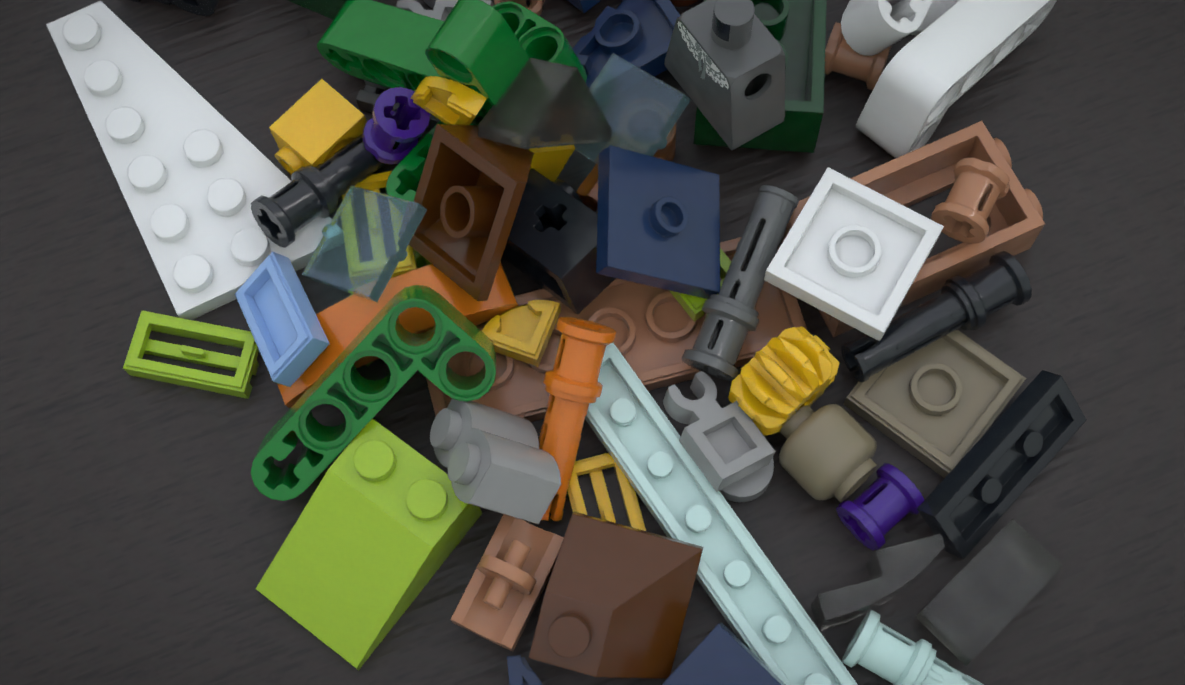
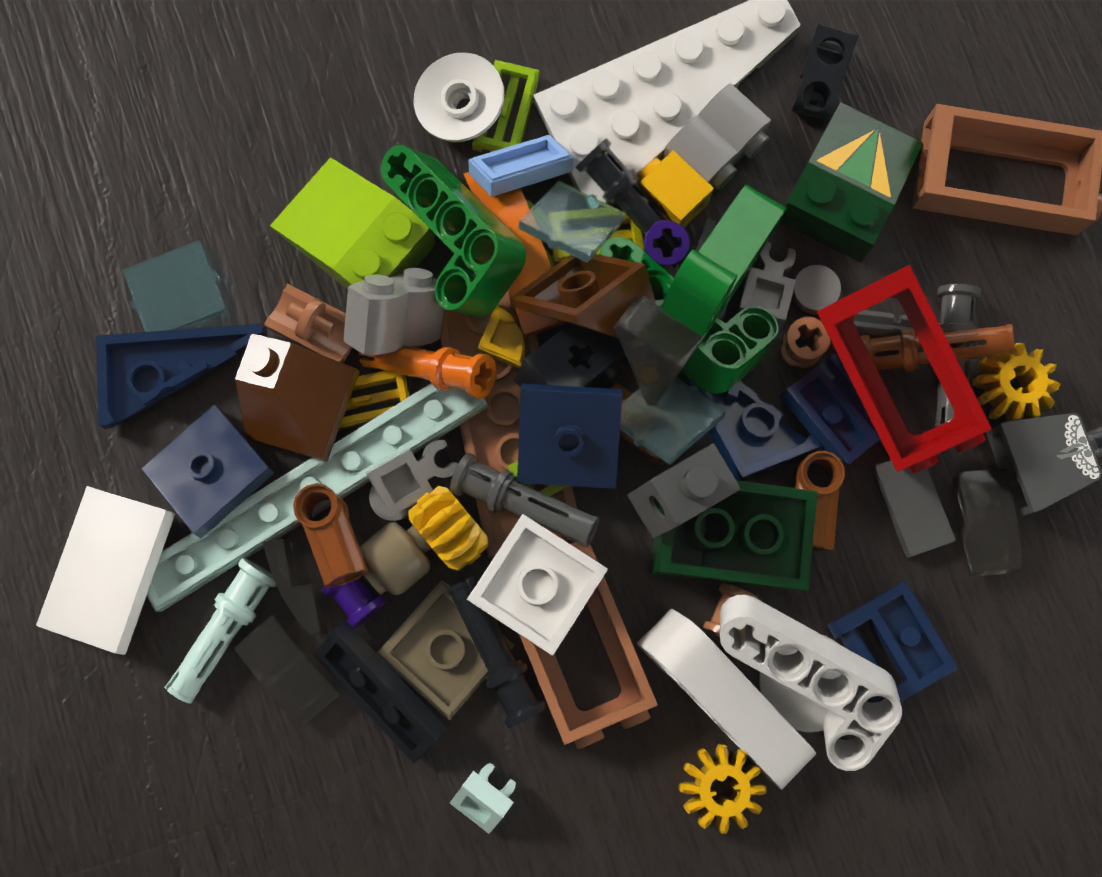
camera: 90 degrees right, 10 degrees up
(147, 405) = (449, 82): none -> white dish
(246, 82) = (721, 136): none -> light grey brick
(448, 100) = (663, 280): yellow tile -> none
(817, 518) = (331, 538): none -> dark orange piece
(971, 200) = (579, 683): nougat bush -> none
(1065, 60) = (724, 806): none -> yellow gear
(1122, 330) = (482, 801): none -> light aqua tile

